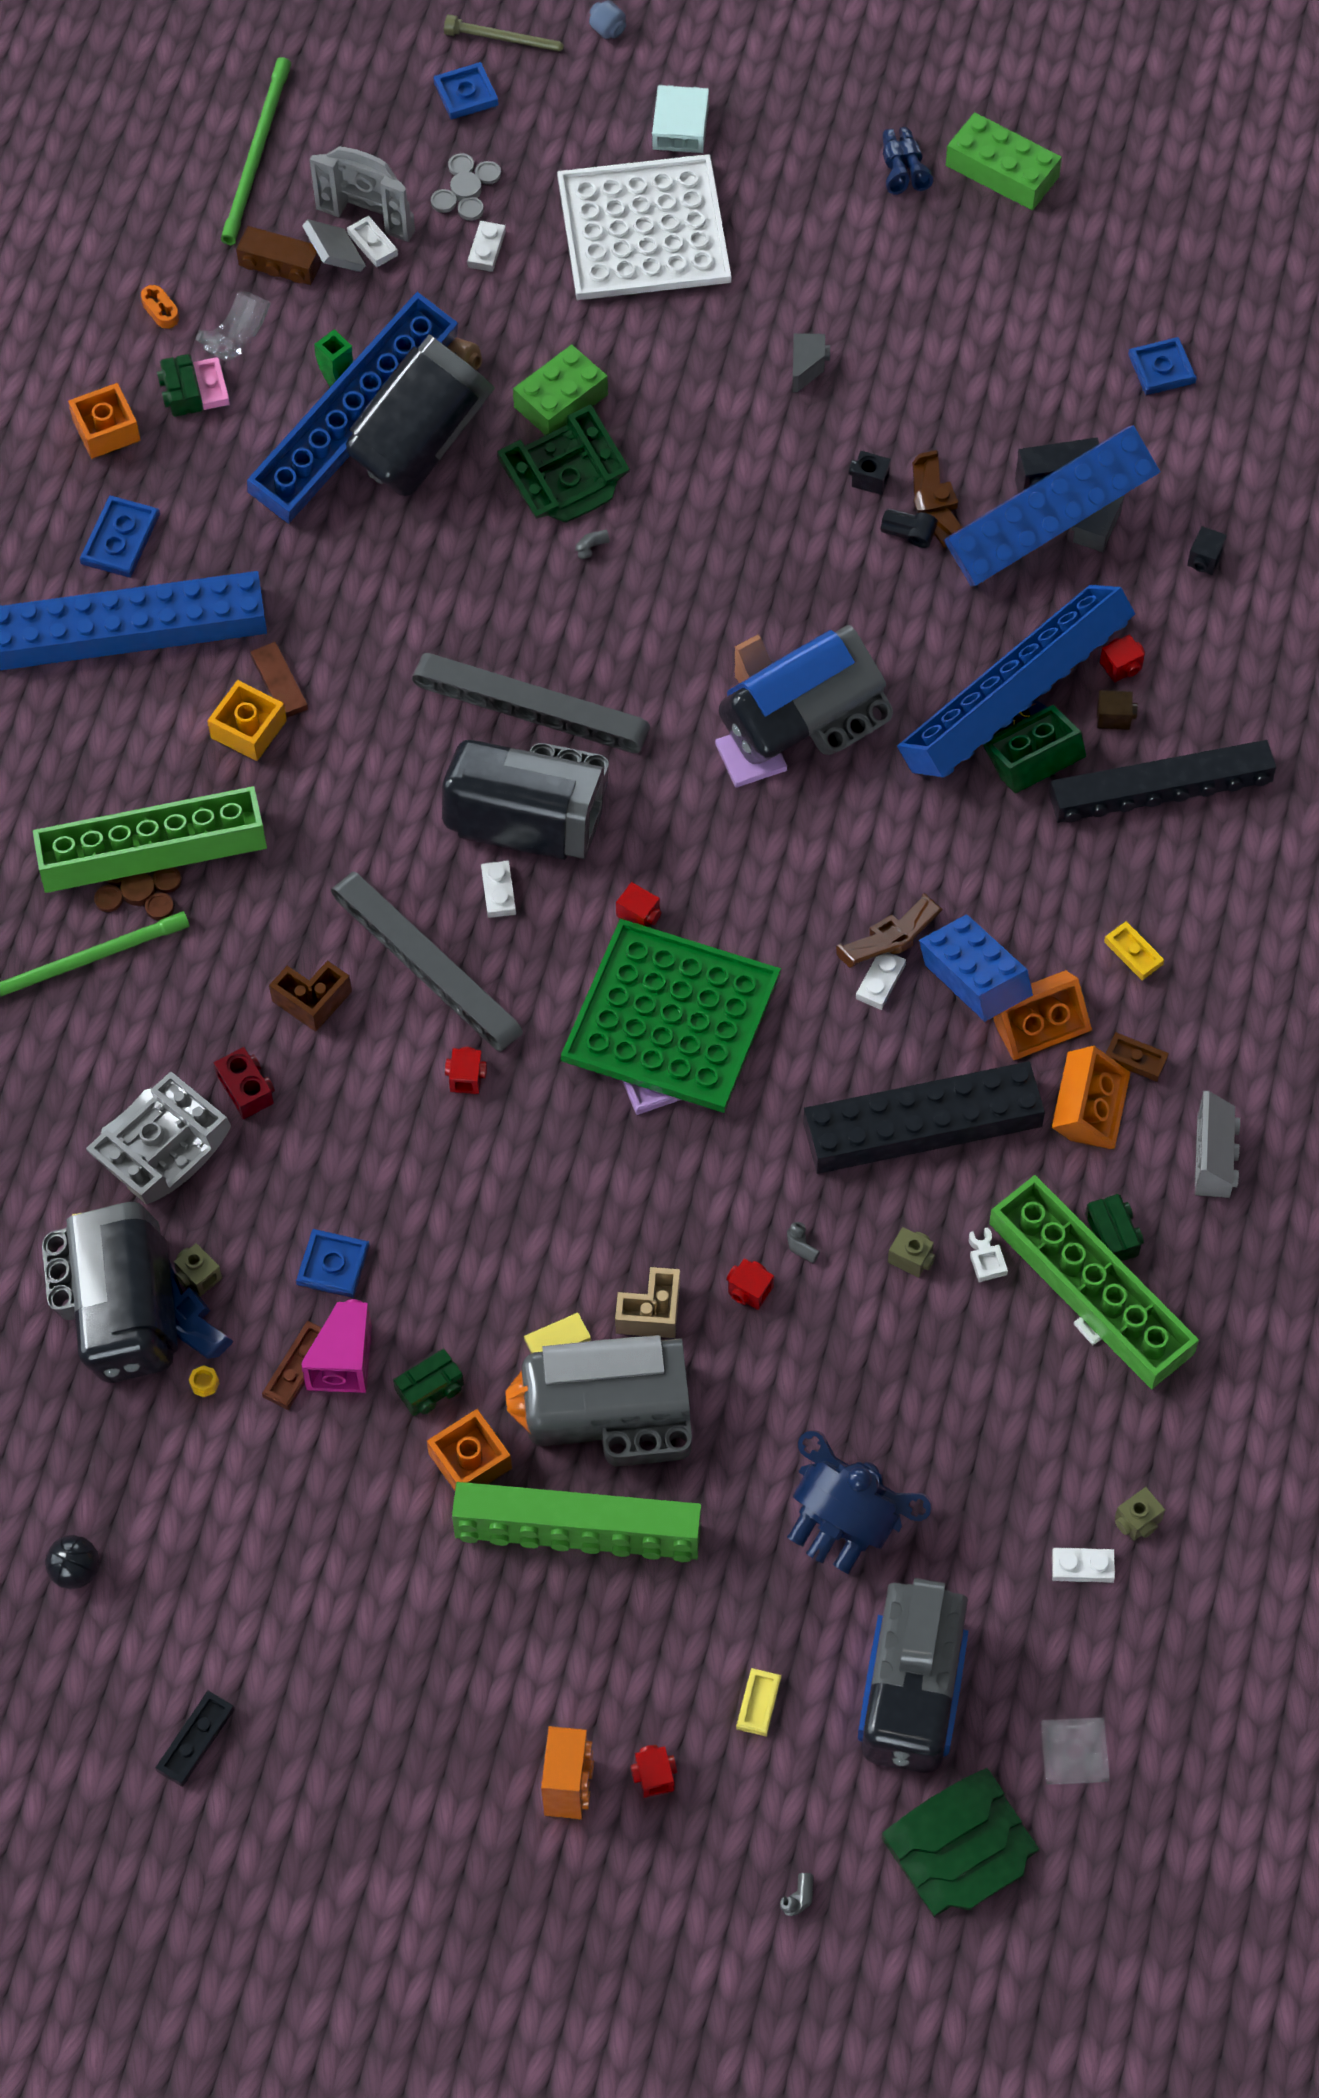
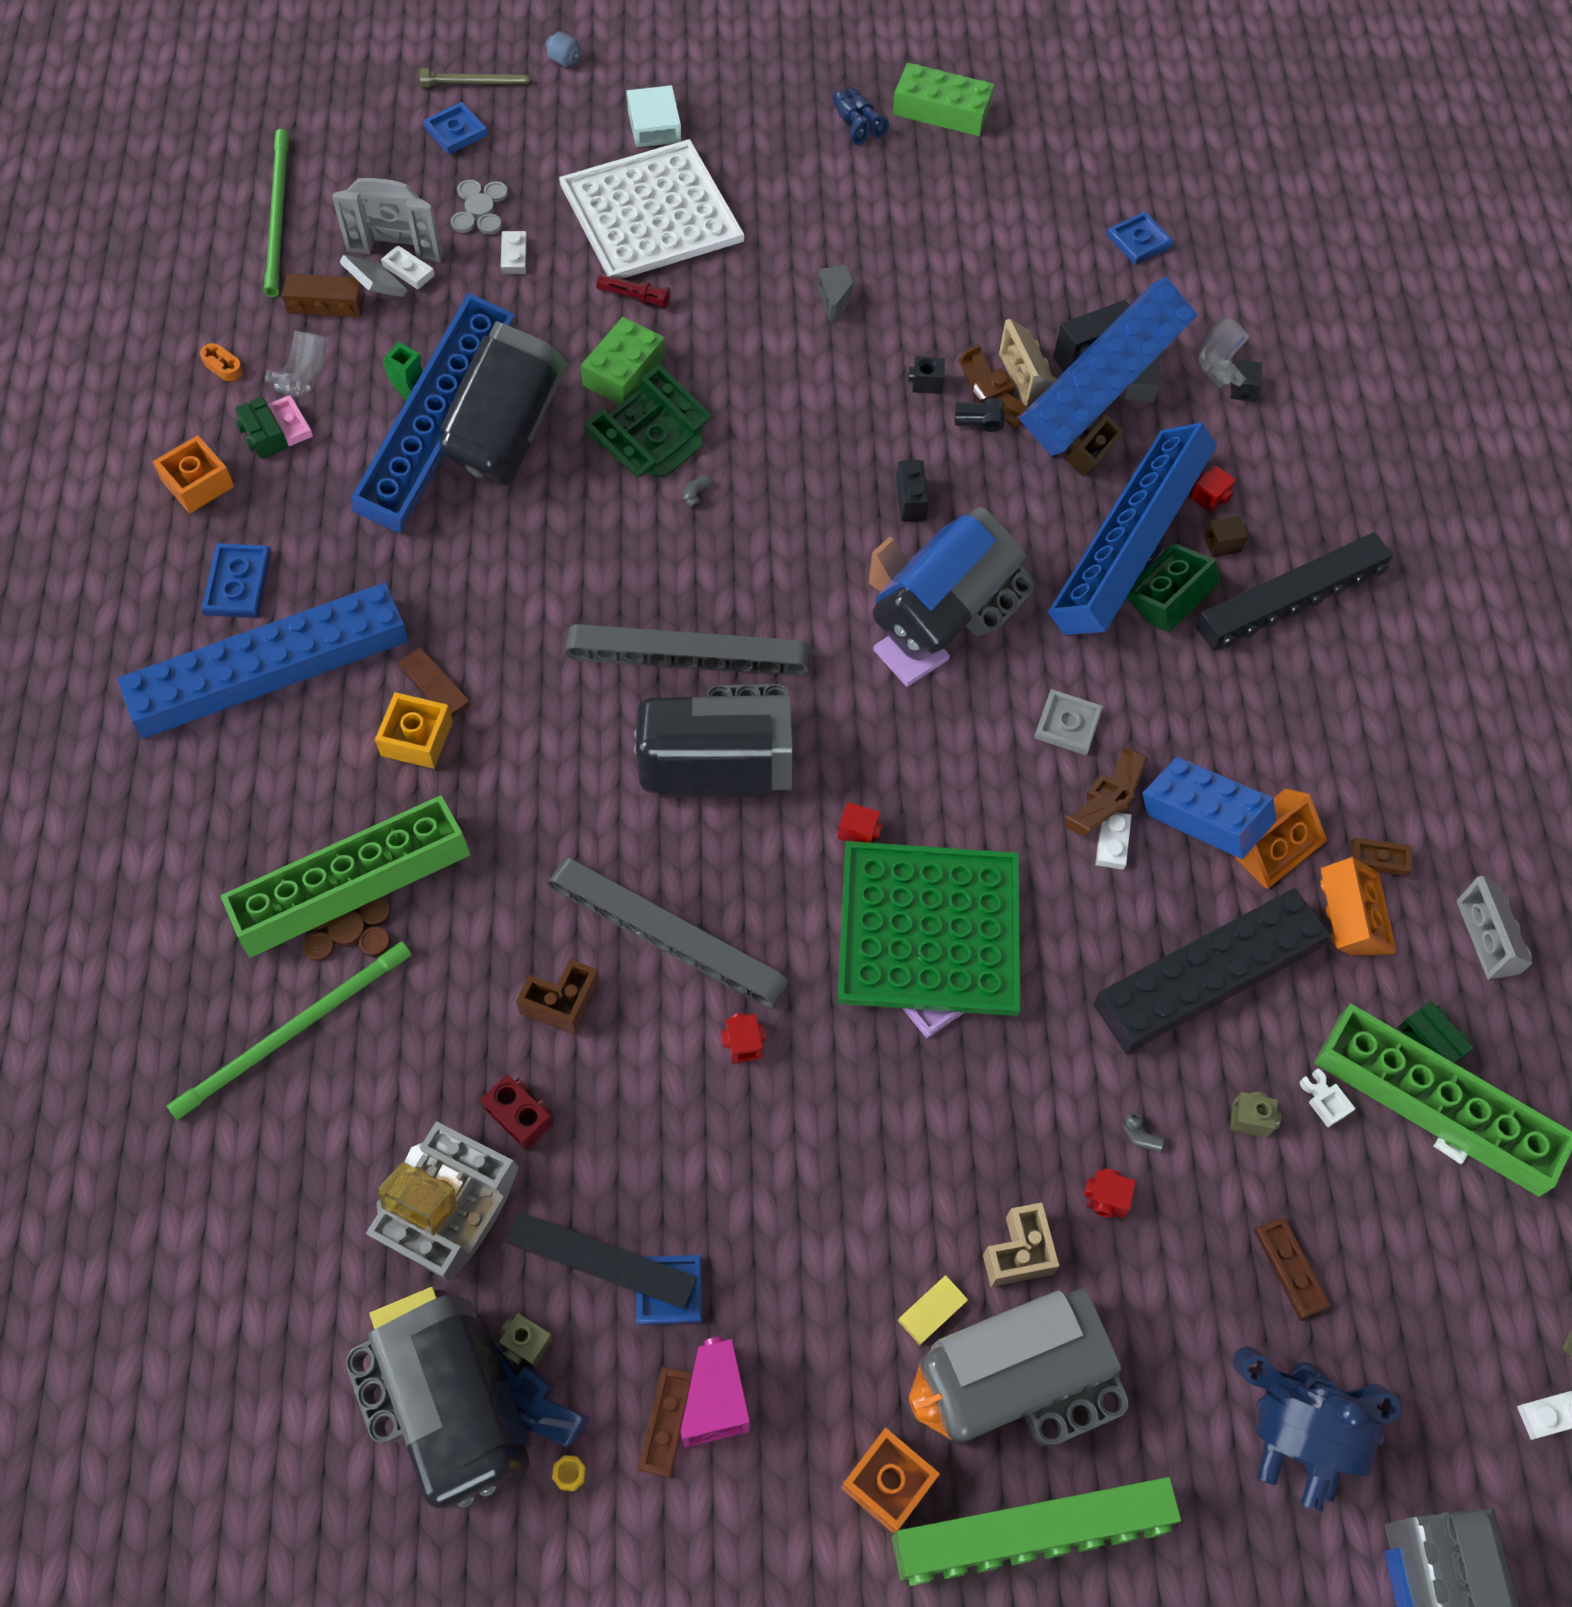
camera: 20 degrees left, 0 degrees up
(137, 1128) = (418, 1198): none -> clear yellow brick
(281, 1223) = (602, 1260): none -> black tile
(429, 1383) = (816, 1404): dark green brick -> none
(498, 889) = (714, 840): white plate -> none
(607, 320) = (645, 290): none -> dark red pin
(808, 592) = (912, 490): none -> black brick
(881, 858) = (1068, 722): none -> light grey tile
(894, 1388) = (1292, 1268): none -> copper tile
(977, 478) = (1024, 362): none -> tan slope
(1012, 585) = (1093, 446): none -> dark brown brick
(1134, 950) = (1335, 754): yellow plate -> none
(1188, 513) = (1219, 350): none -> clear arch

